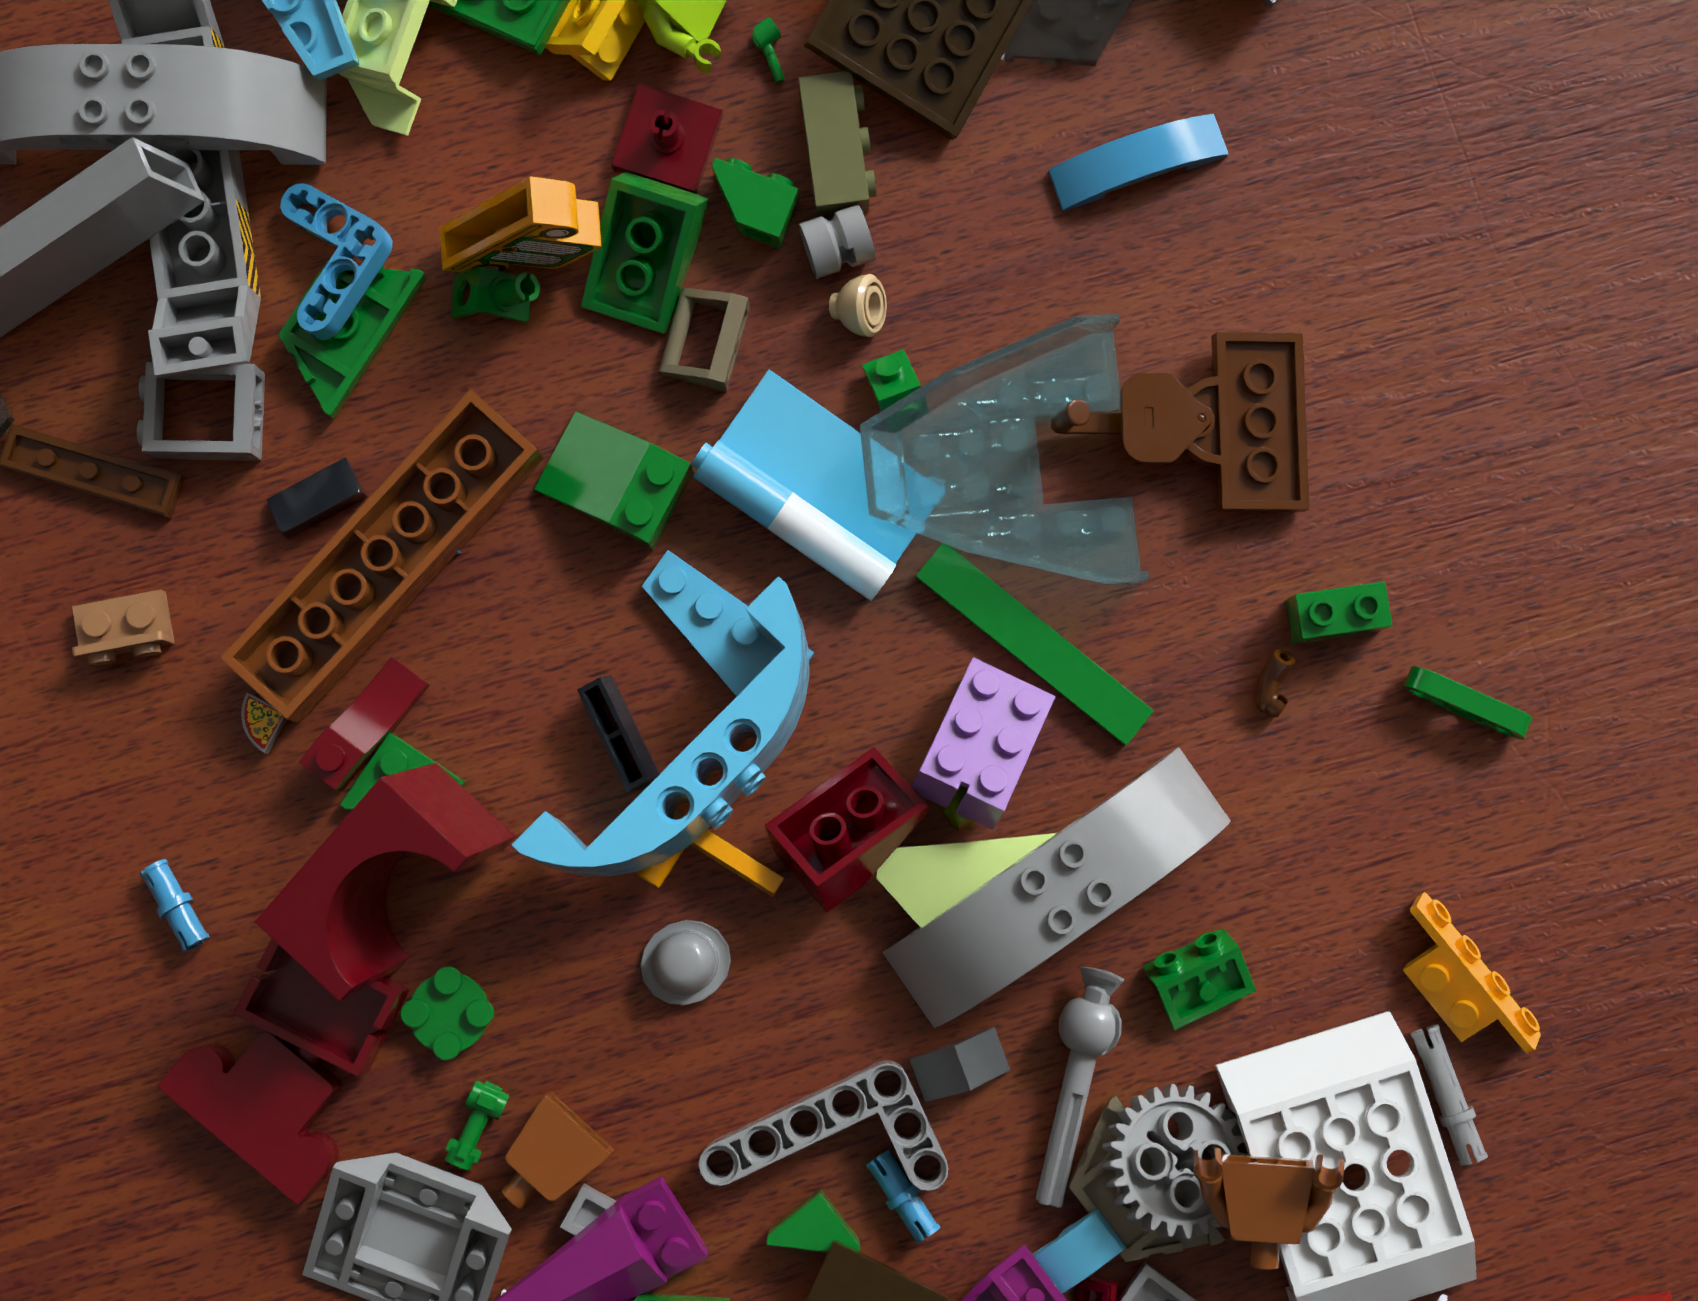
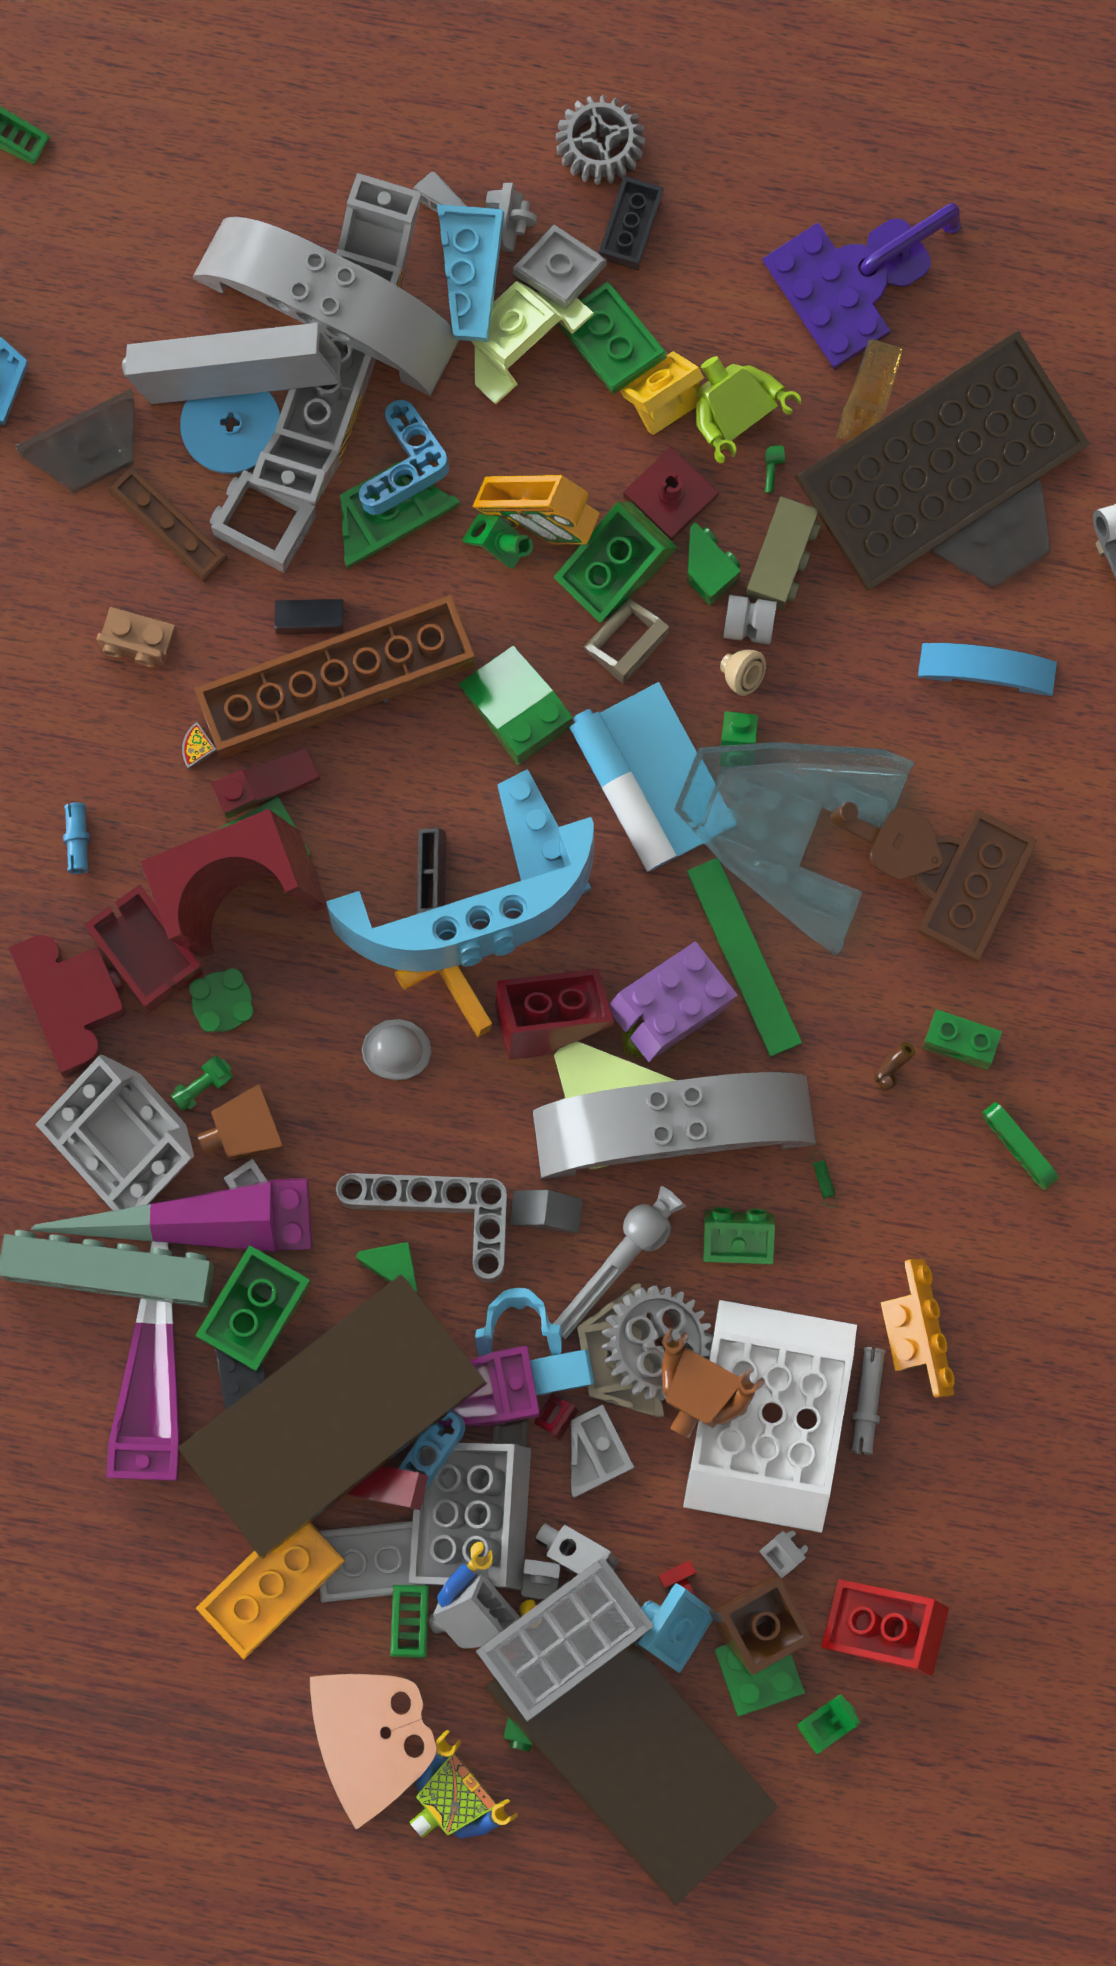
camera: 30 degrees right, 5 degrees down
(97, 349) = (223, 450): none -> dark azure piece
(902, 1196) = (462, 1277): dark azure pin -> none
(982, 1186) = (519, 1299): none -> medium azure helmet
(1261, 857) = (824, 1179): none -> green piece

